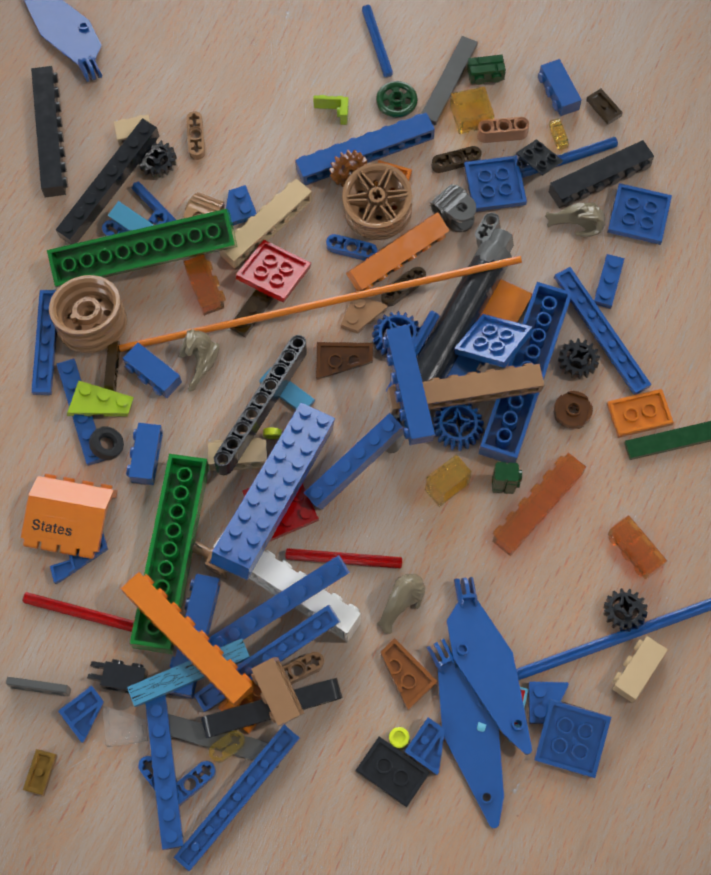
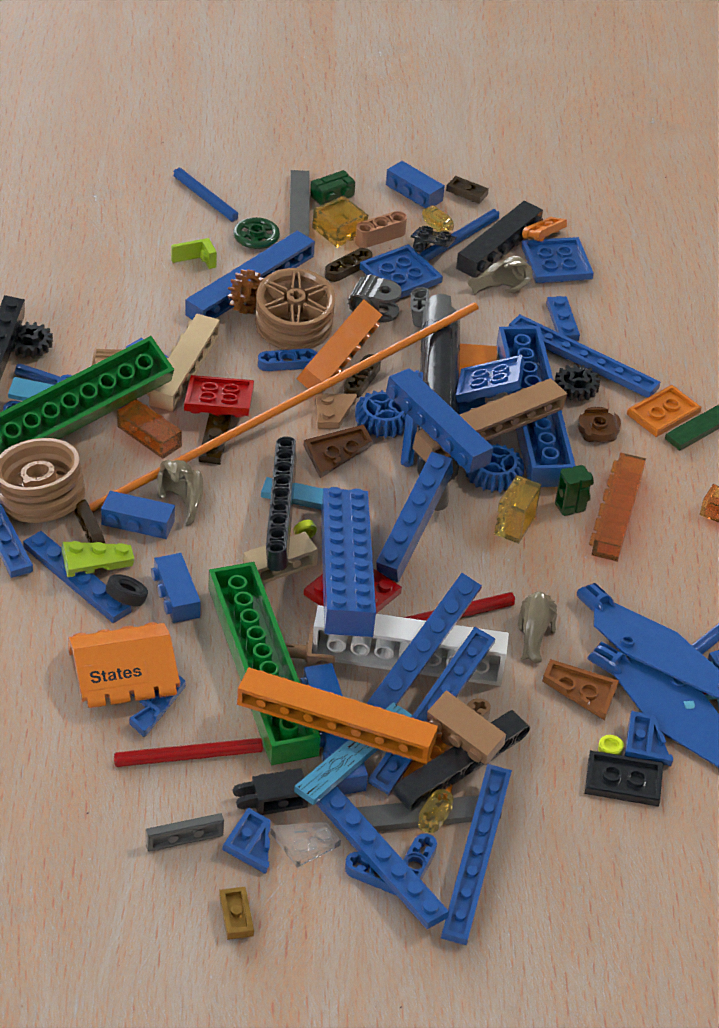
camera: 30 degrees left, 25 degrees down
(194, 141) = (59, 319): medium nougat beam -> none
(646, 175) = (544, 228): none -> orange plate

